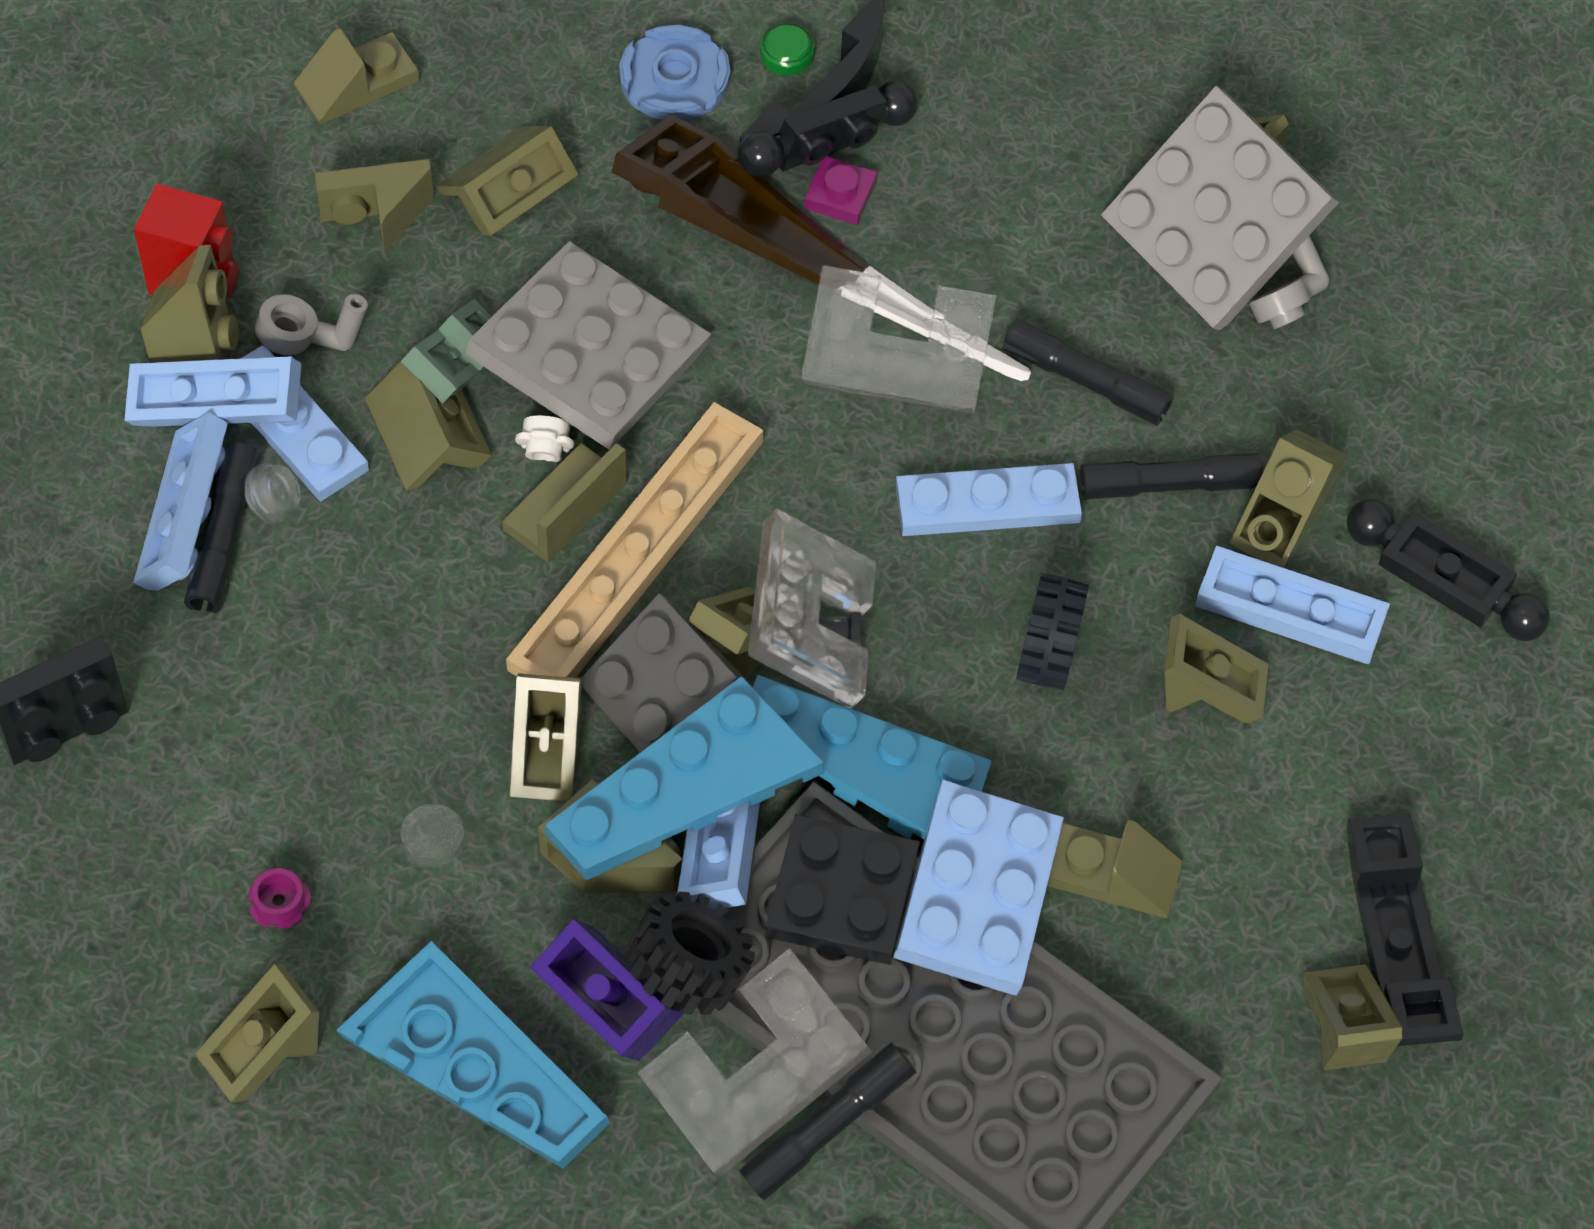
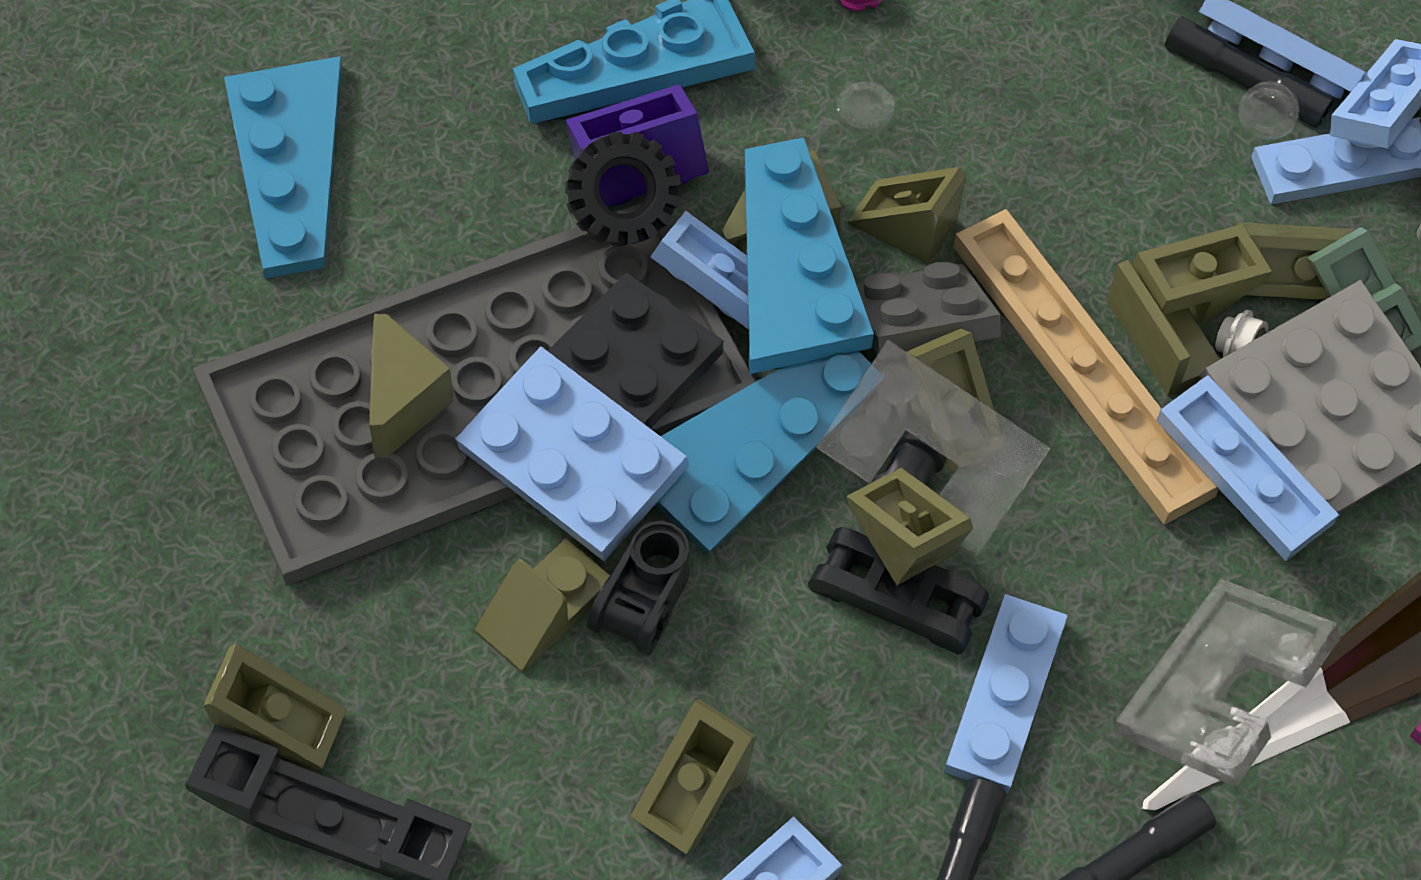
camera: 115 degrees right, 0 degrees up
(506, 473) = (1203, 272): none -> olive slope
(694, 380) = (1247, 467): none -> light blue plate
(737, 1114) = (485, 244): clear plate -> none
(796, 1147) = (431, 274): black piece -> none
(909, 584) = (908, 523): none -> olive slope
(943, 608) = (902, 603): none -> black plate
(1002, 1052) = (406, 386): none -> olive slope
(1052, 631) = (809, 646): black wheel -> none
(1065, 786) = (638, 597): none -> black piece

